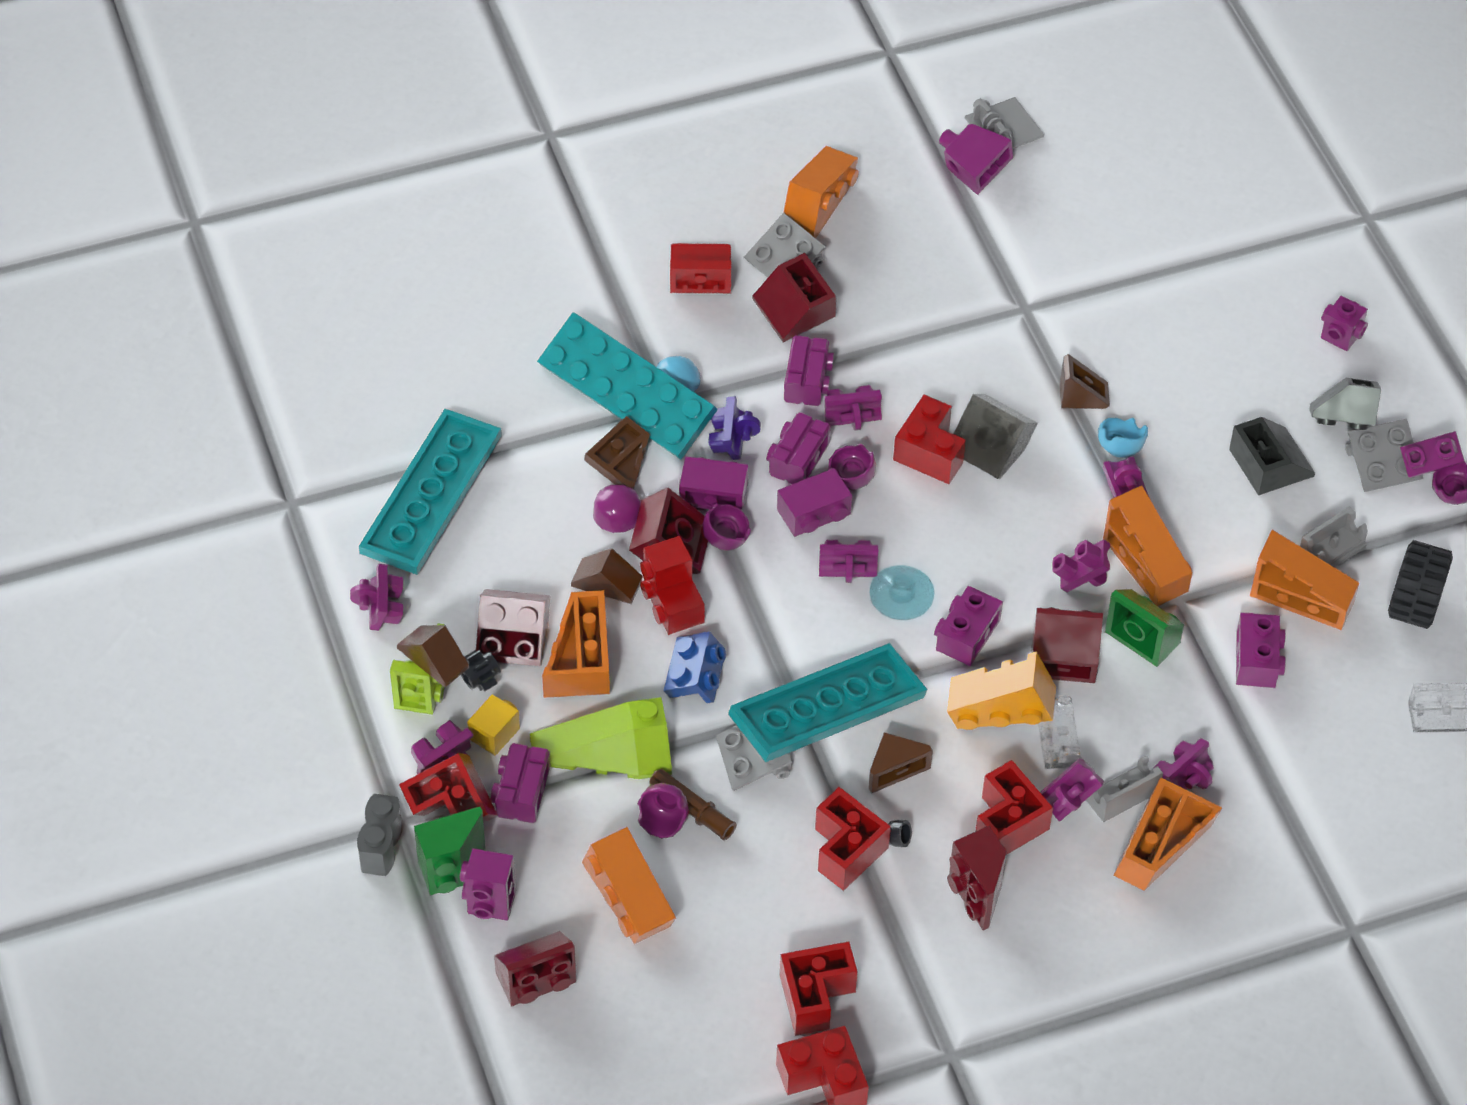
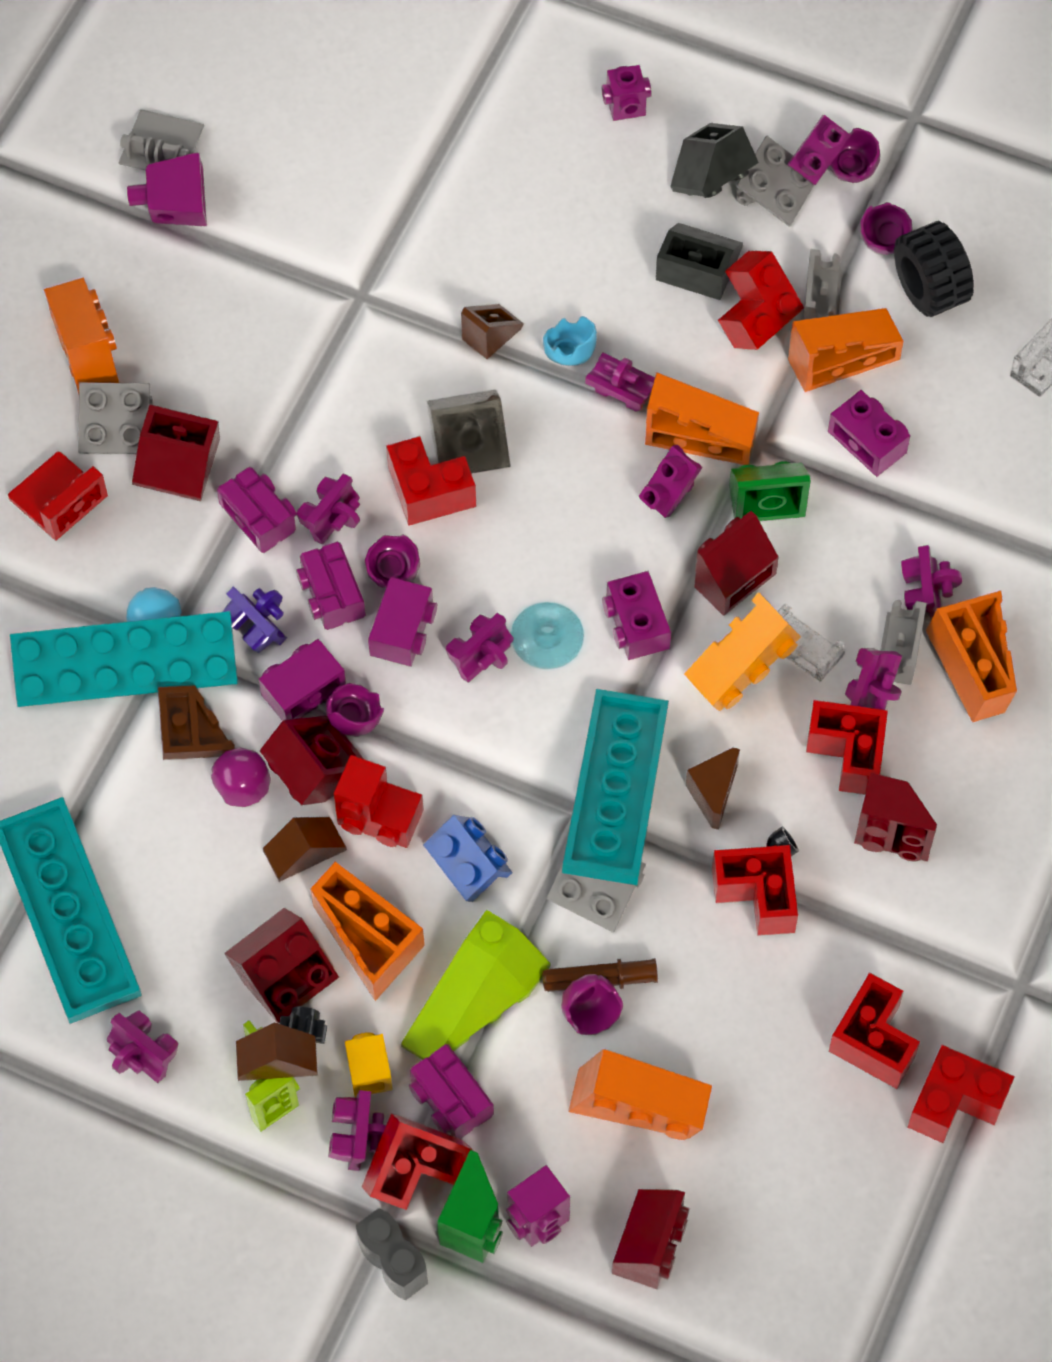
camera: 45 degrees left, 10 degrees up
(1282, 512) = (765, 301): none -> red brick
(1423, 530) = (882, 226): none -> magenta hair

